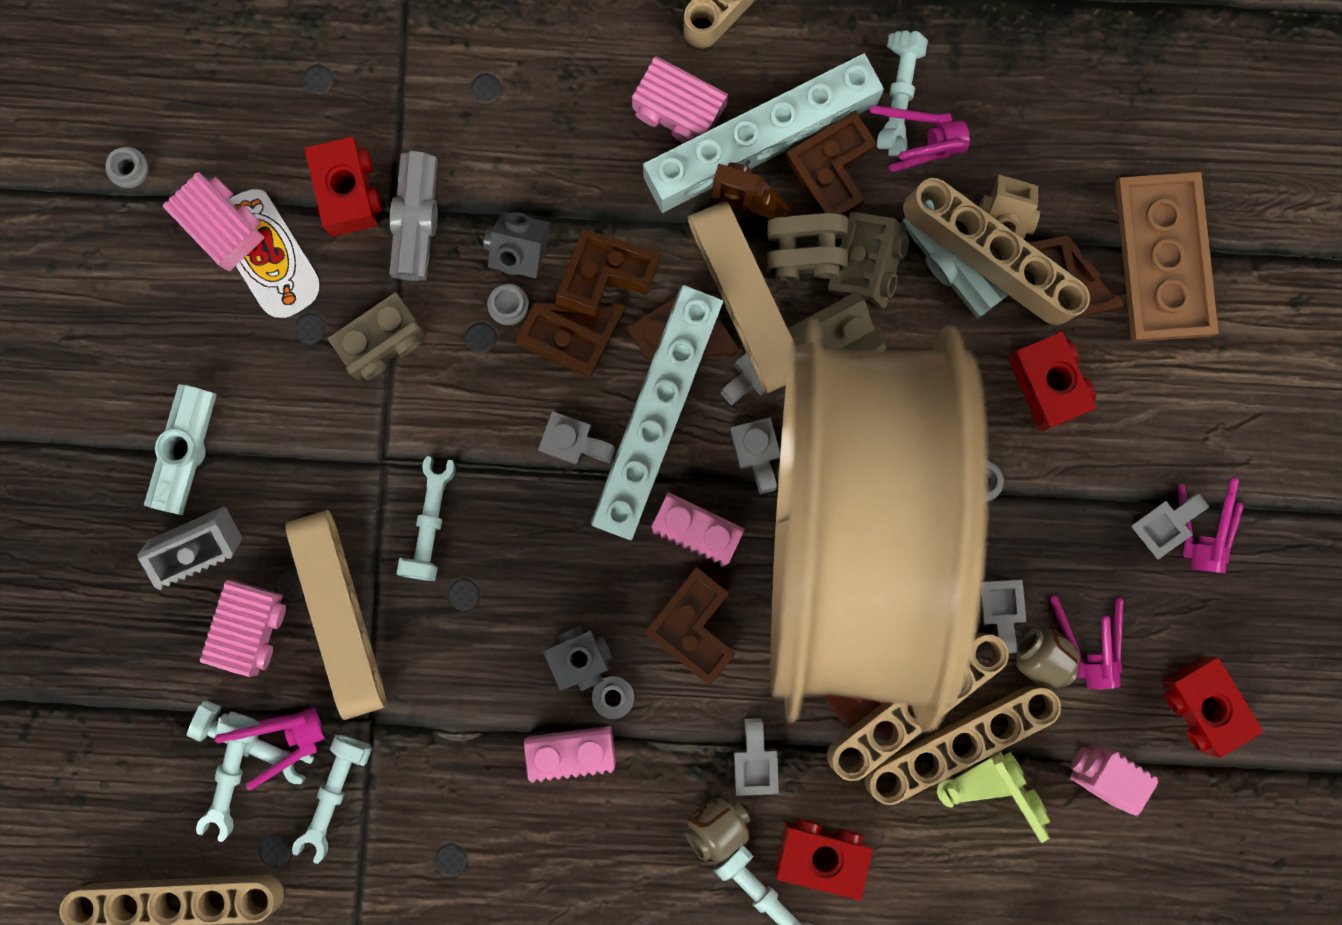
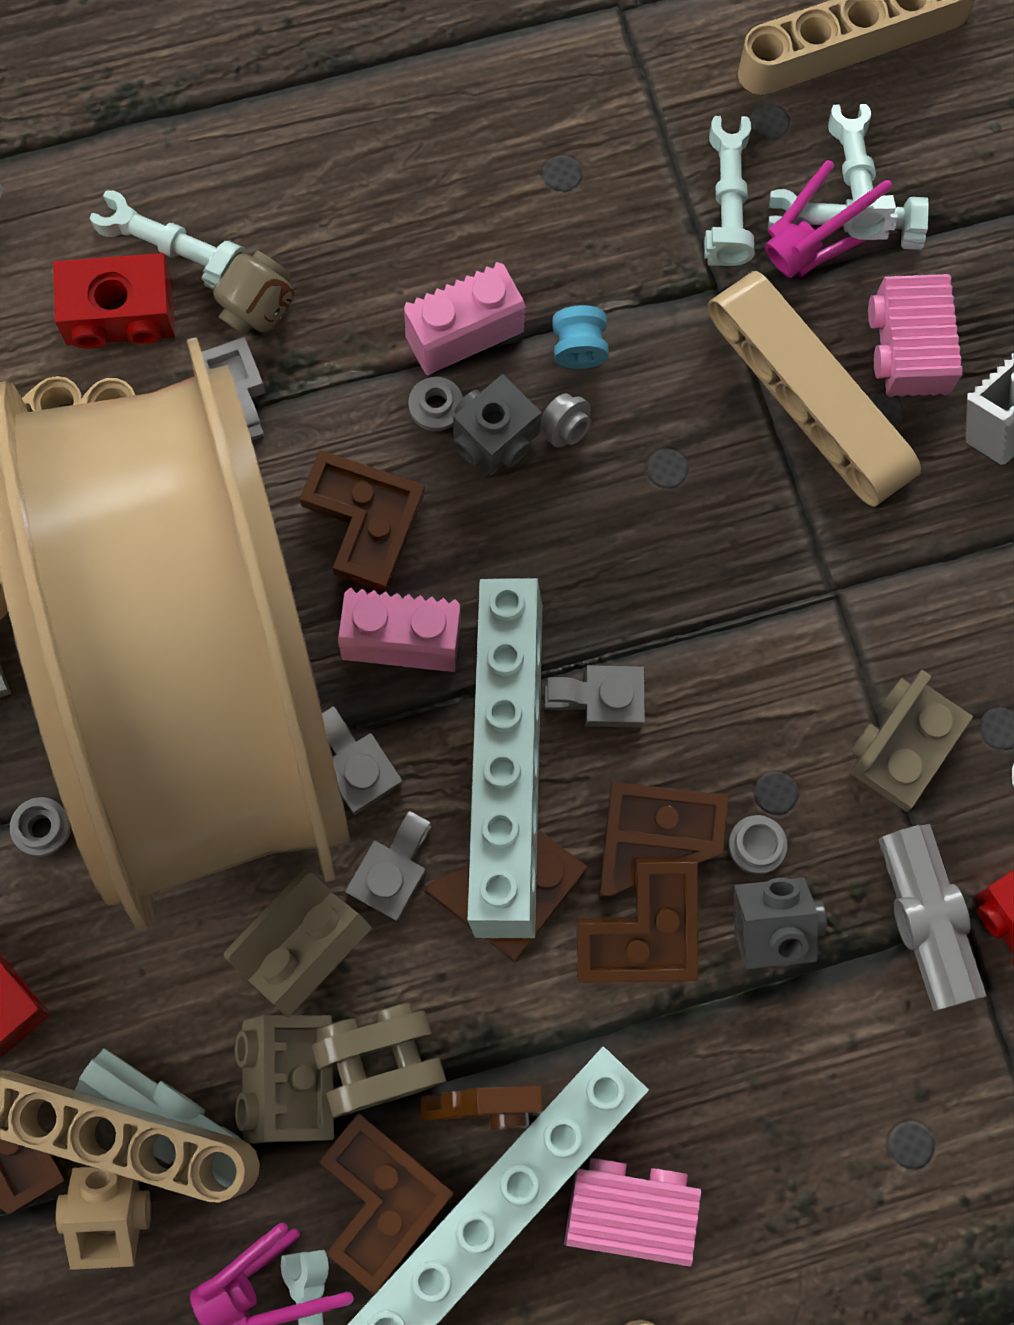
camera: 160 degrees right, 10 degrees down
(420, 566) = (734, 475): light aqua piece -> none
(489, 711) = (580, 337): none -> medium azure wheel
(524, 649) = (566, 420): none -> light grey plate
(744, 293) = (441, 959): tan beam -> none

